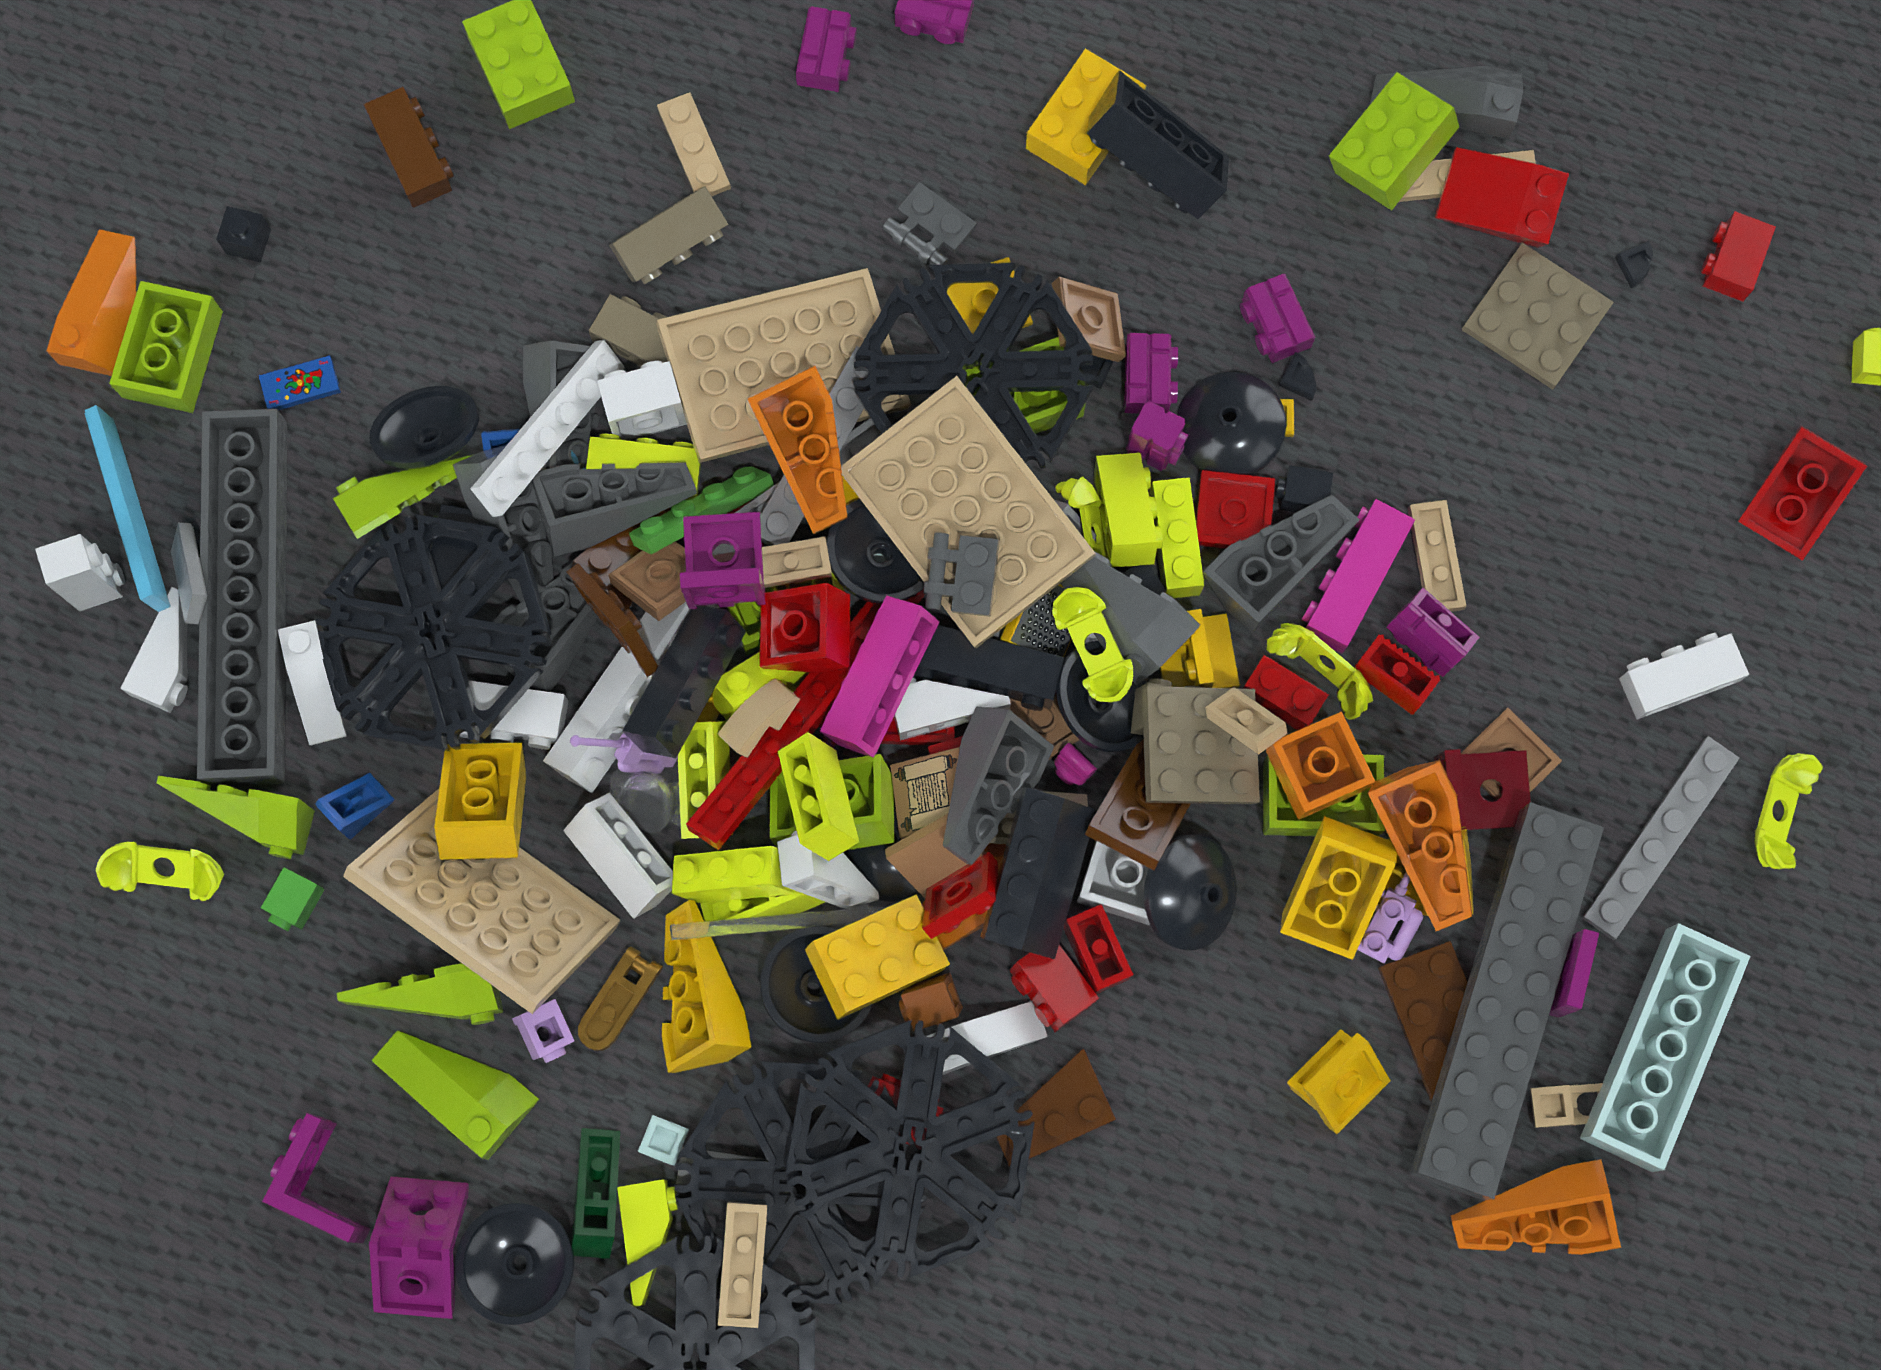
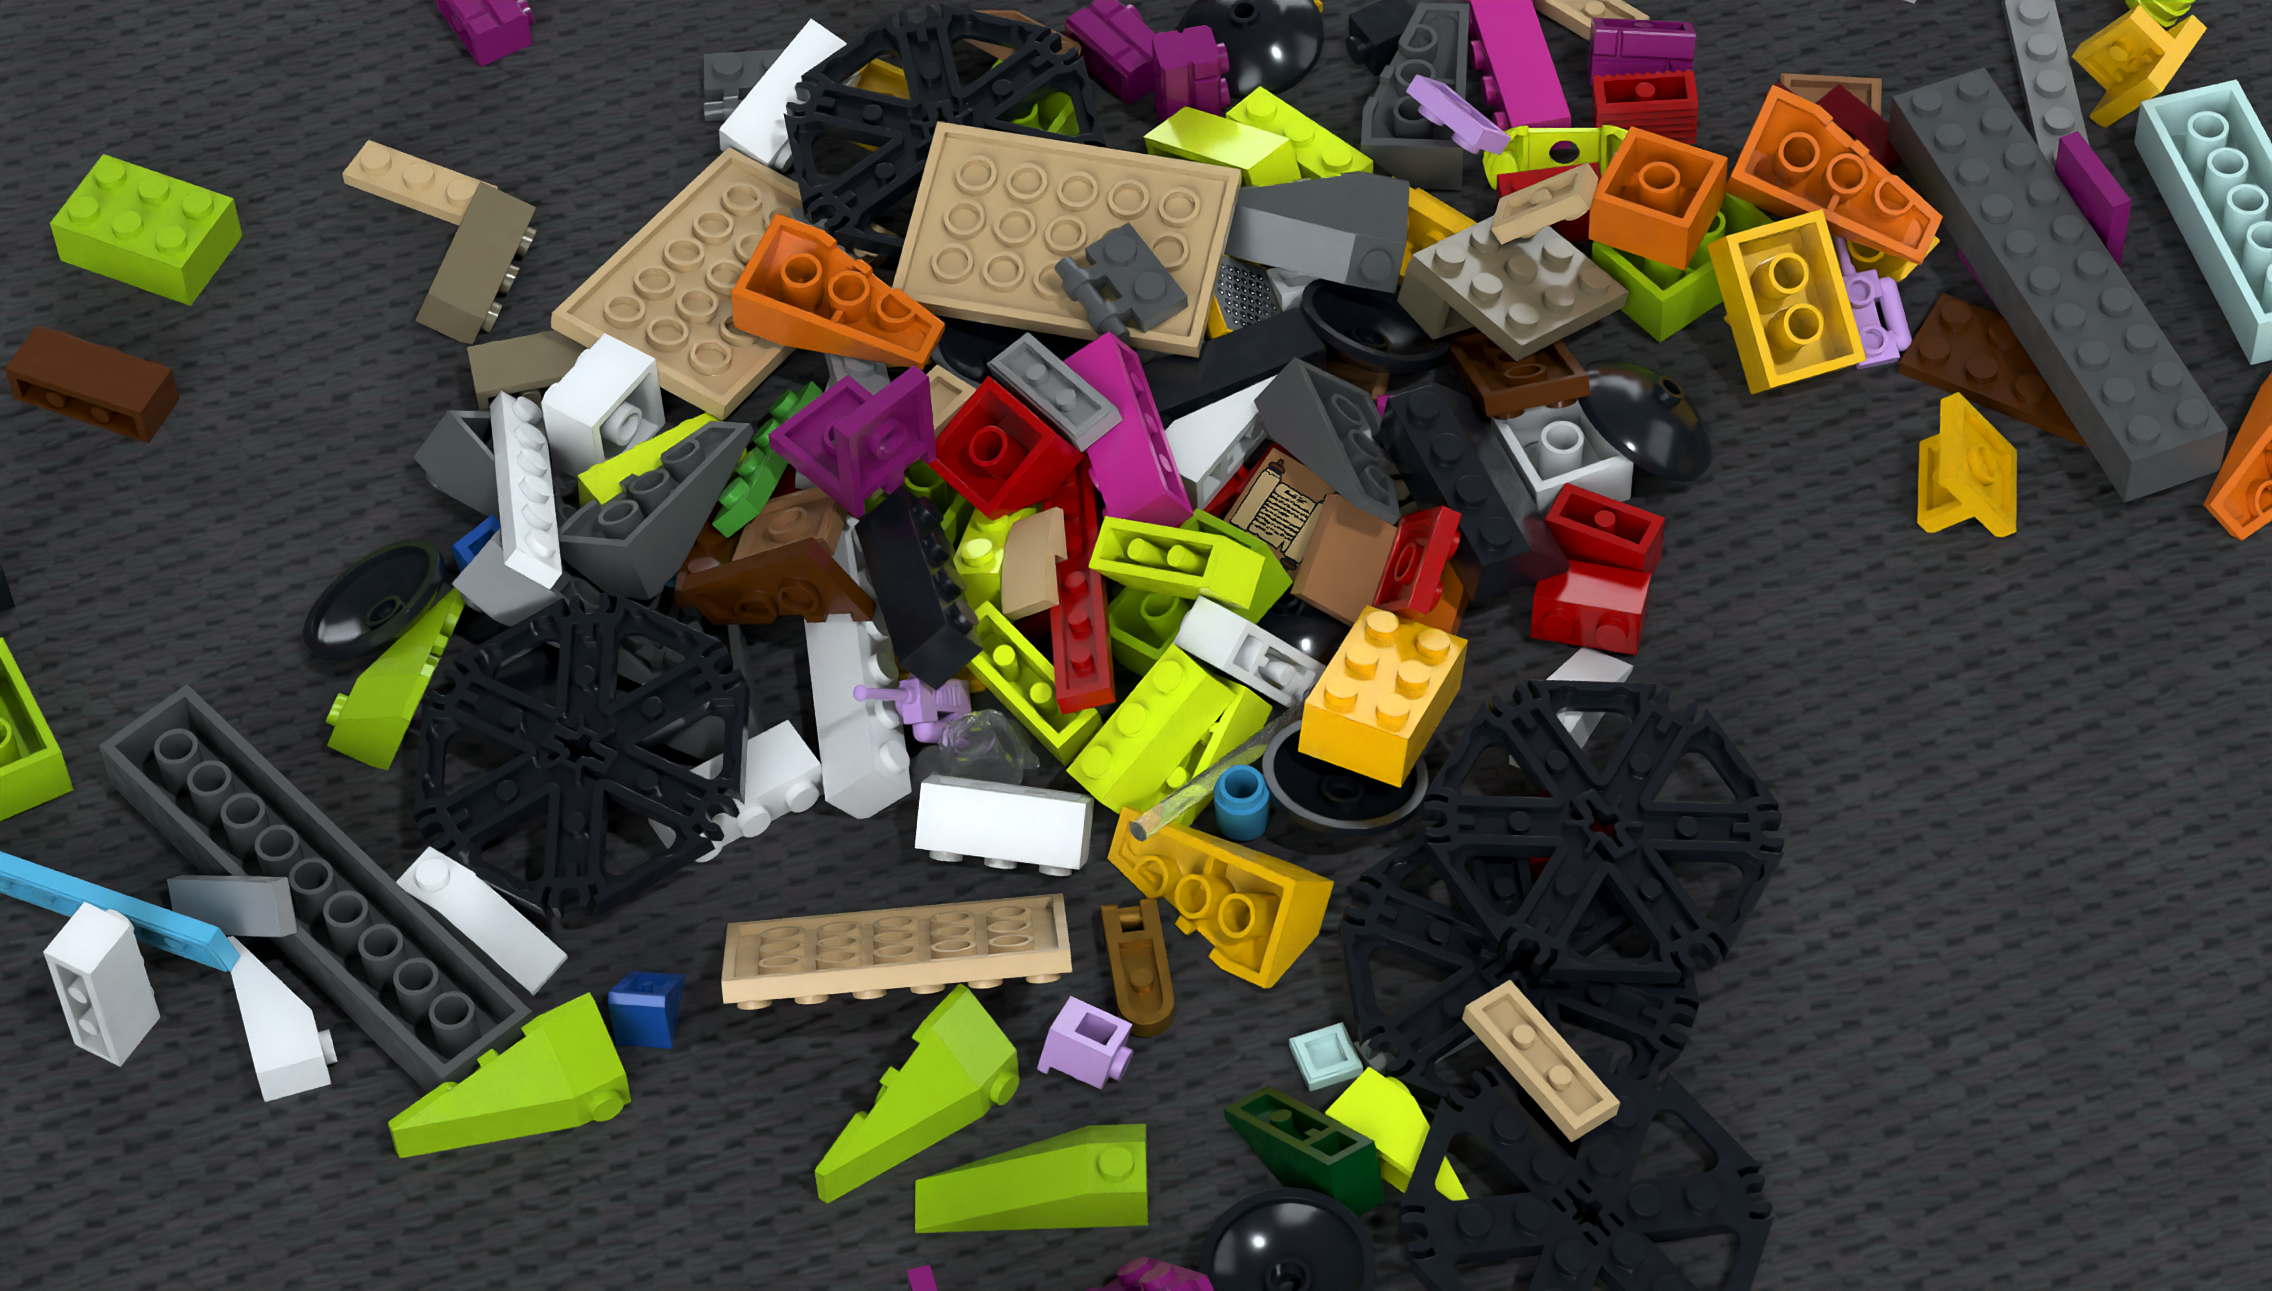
camera: 35 degrees left, 25 degrees down
(133, 863) = (525, 1196): neon yellow piece -> none
(291, 900) = (666, 1137): bright green brick -> none
(300, 383) = (189, 660): blue tile -> none
(481, 801) = (800, 866): yellow brick -> none
(741, 947) = (1242, 803): none -> dark azure brick
(863, 616) = (1054, 392): none -> light grey tile
(905, 261) = (758, 122): none -> white brick
(931, 1001) = (1478, 687): dark orange brick -> none
(1064, 1108) = (1737, 700): reddish brown wing -> none
(1082, 615) = (1279, 254): neon yellow piece -> none
(1232, 507) = (1330, 91): red plate -> none
(1268, 604) = (1446, 107): none -> lavender plate
(1558, 1105) = (2203, 350): tan slope -> none
(1709, 892) = (2134, 60): none -> yellow bracket

